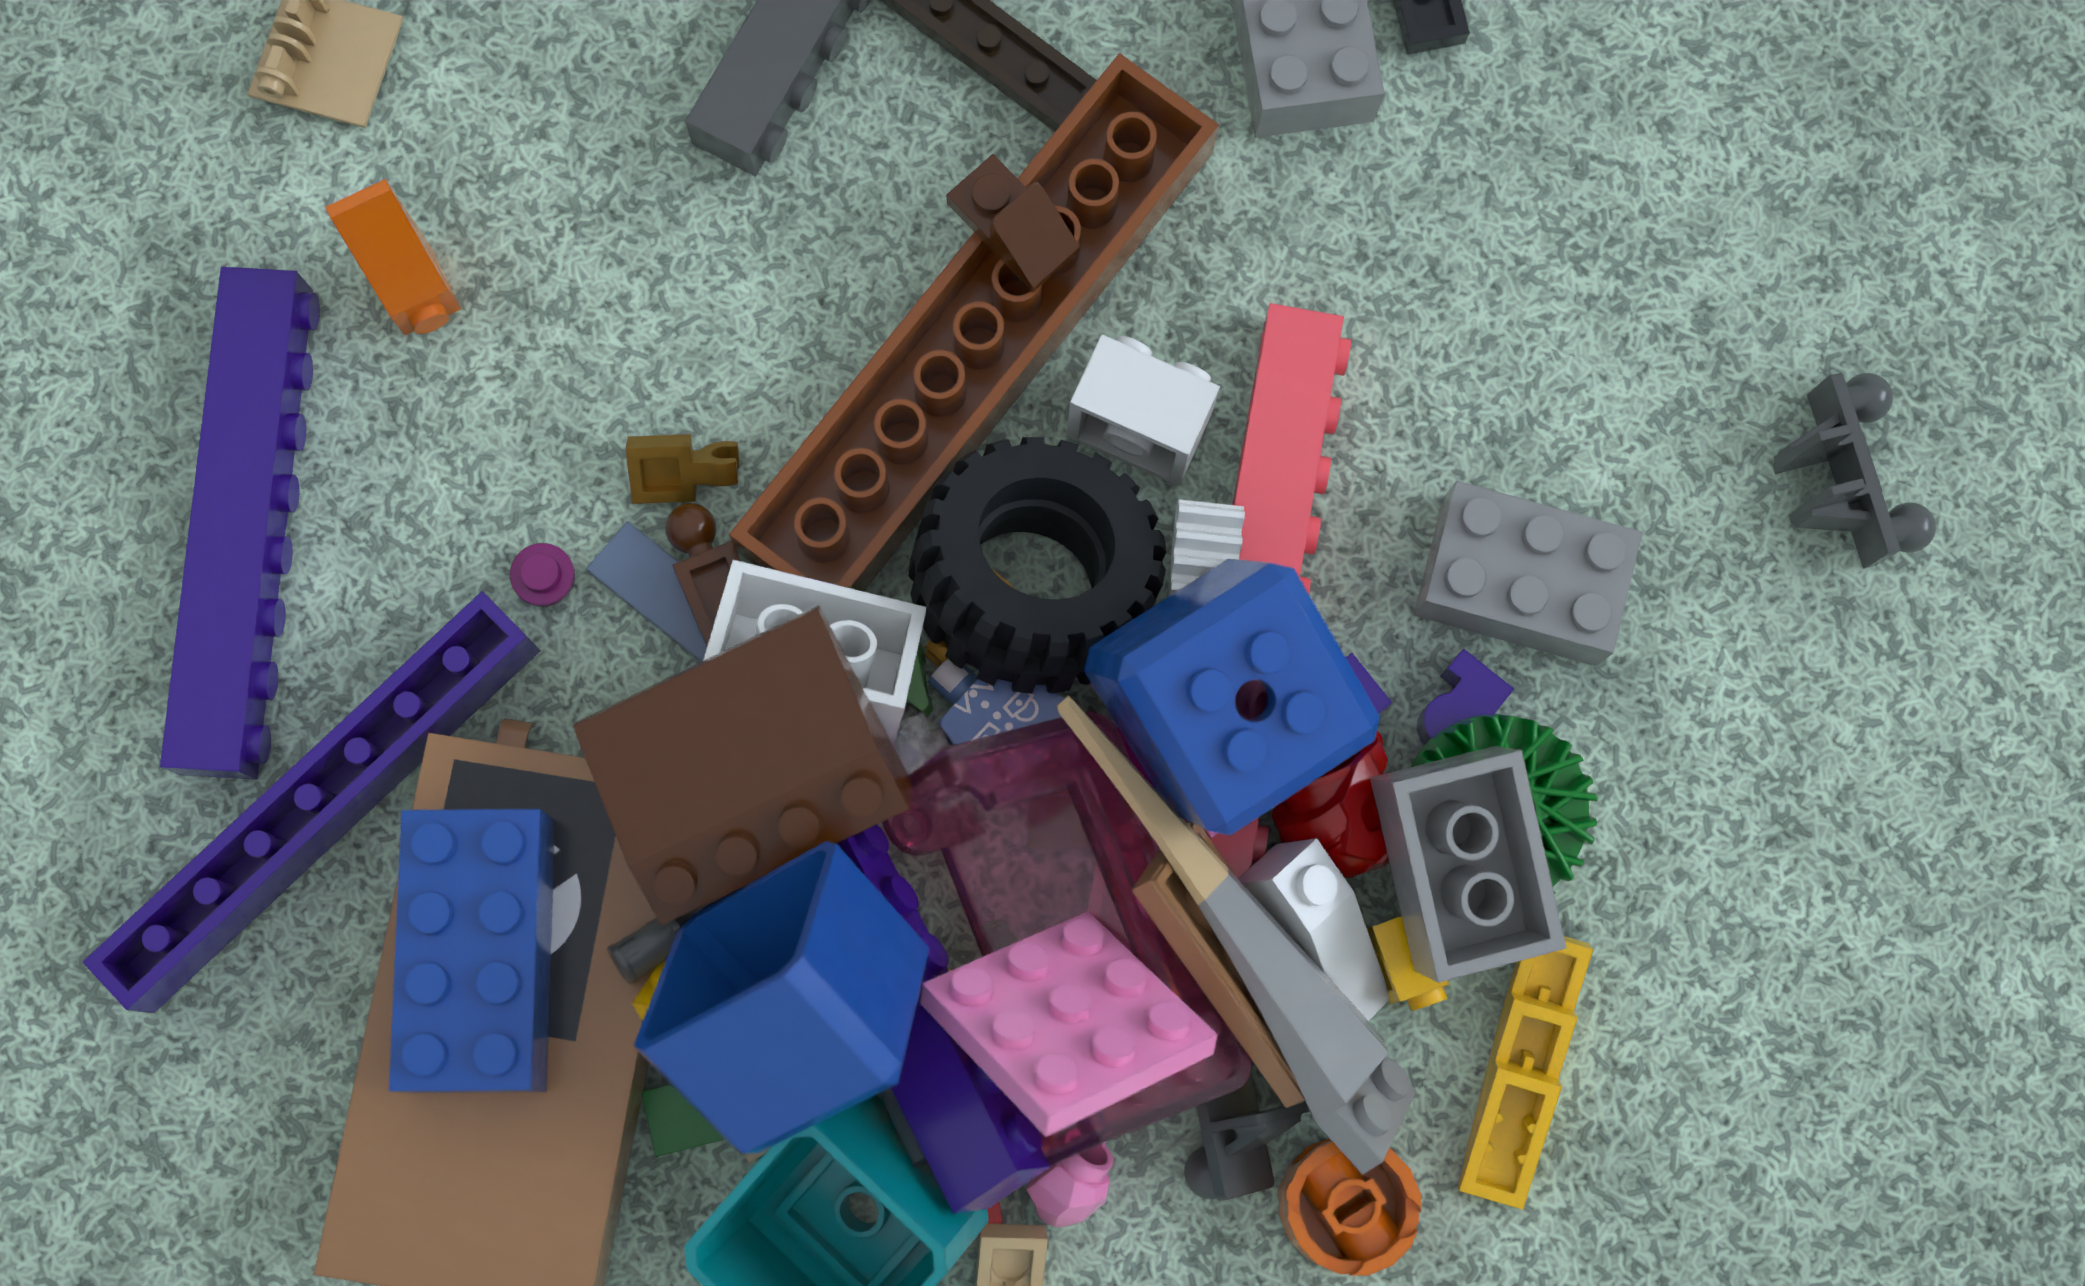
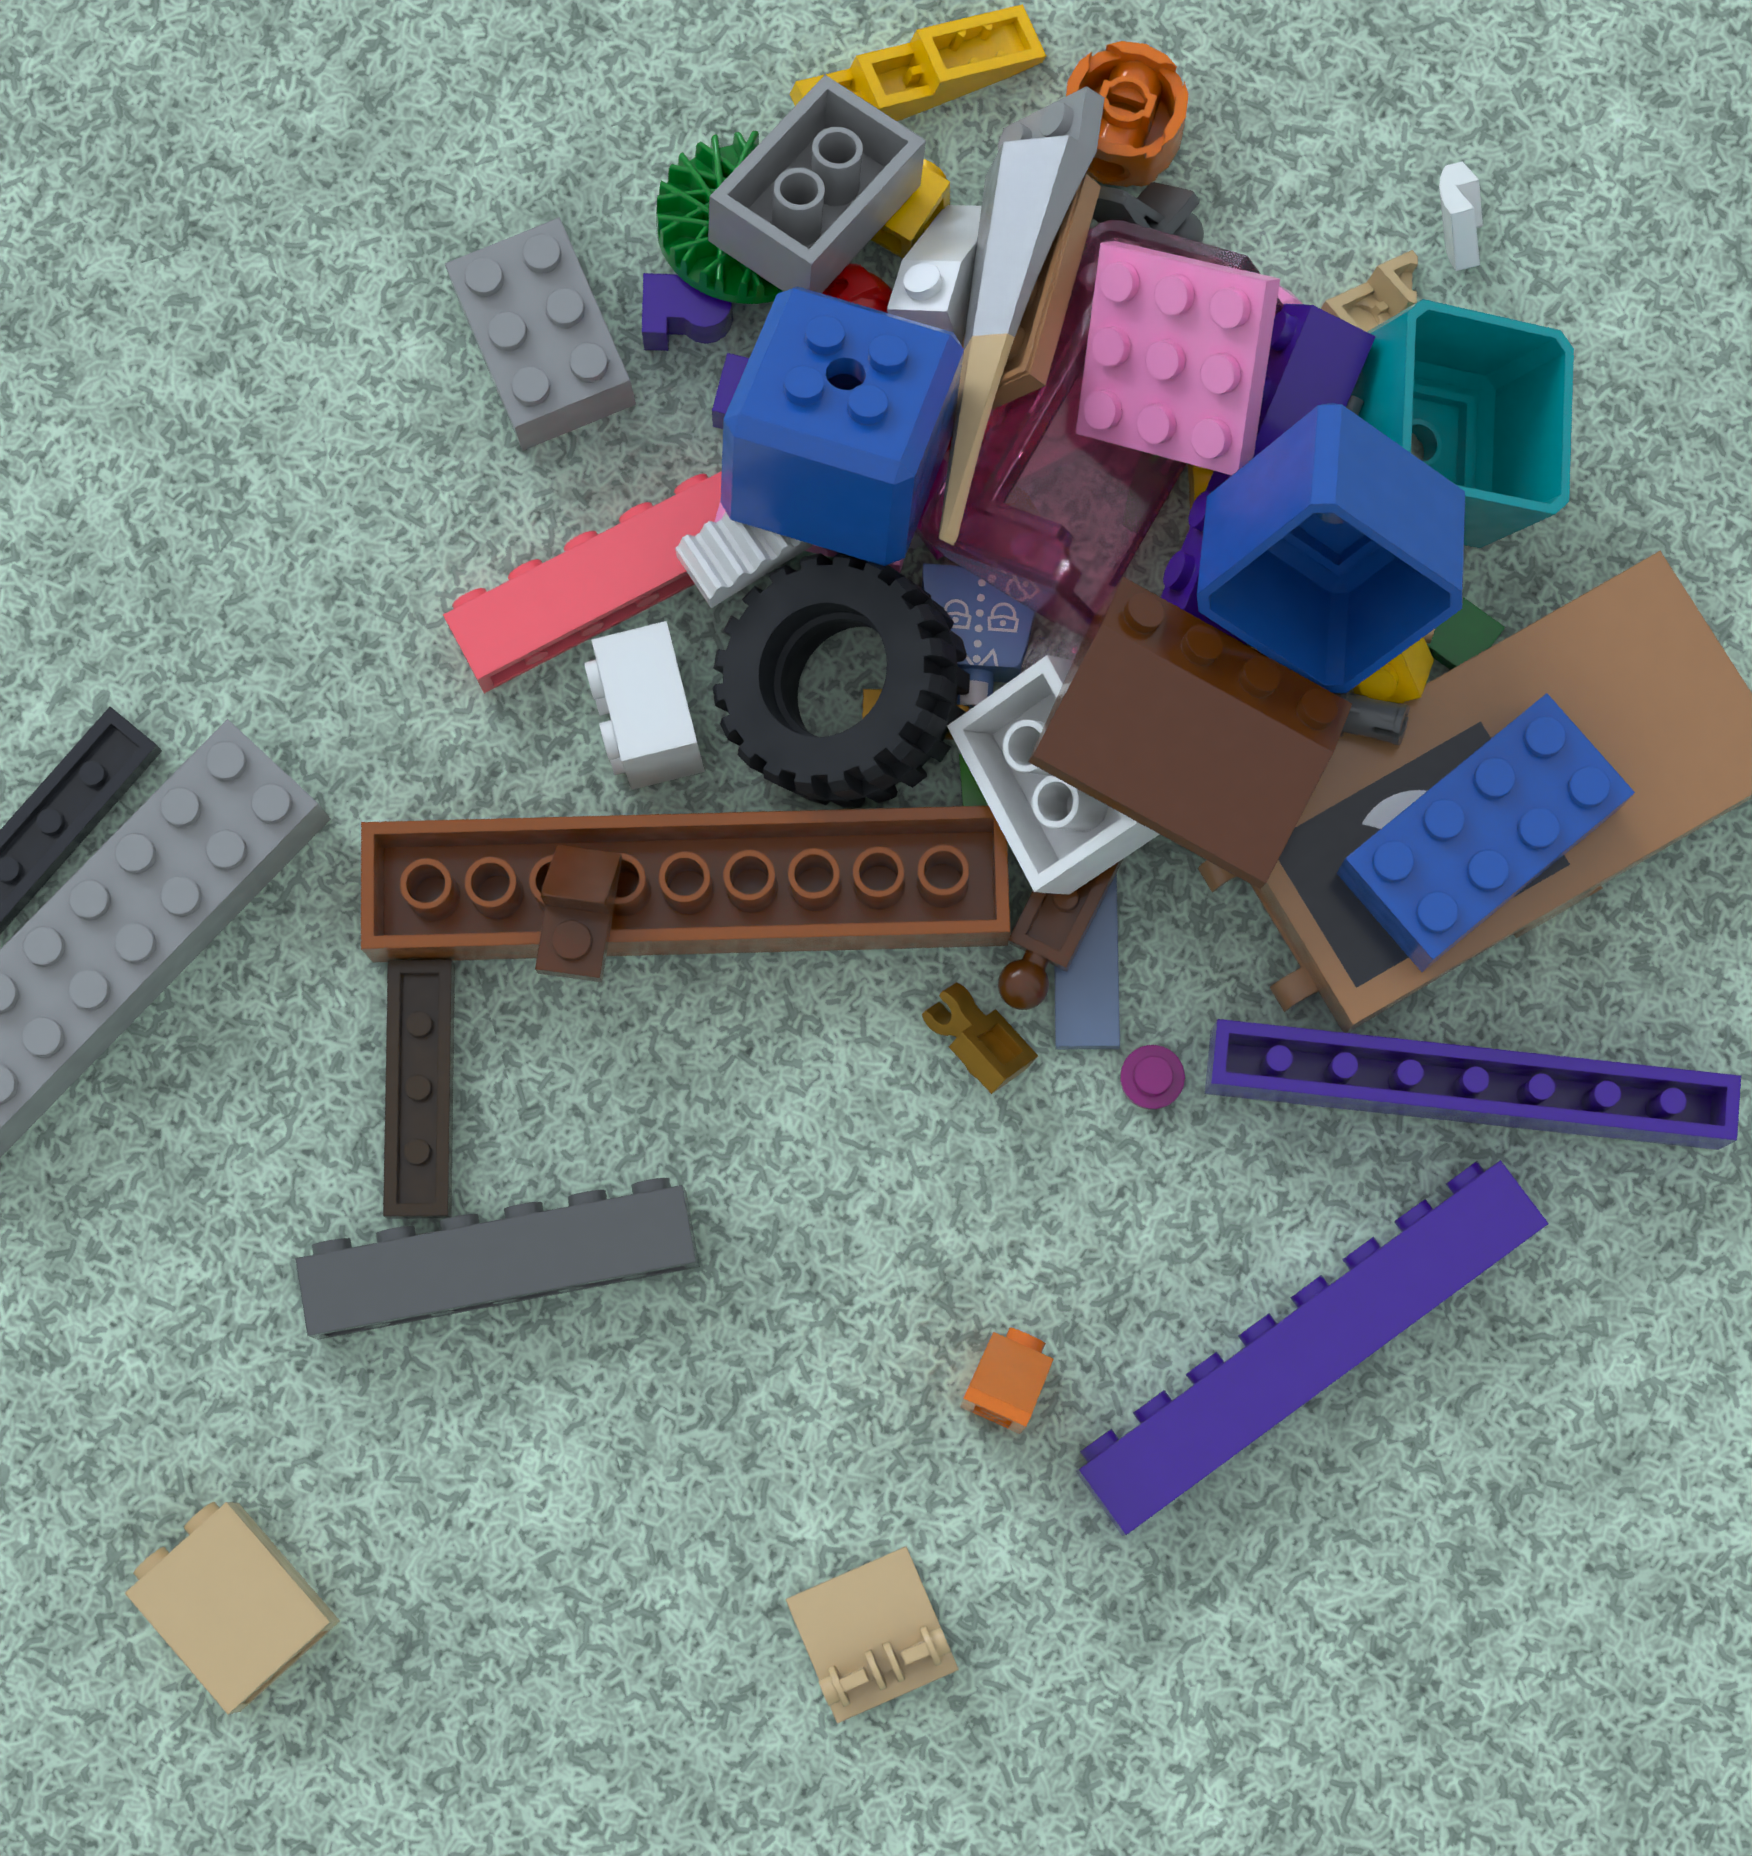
camera: 120 degrees left, 0 degrees up
(1857, 497) = (250, 180): dark grey piece -> none

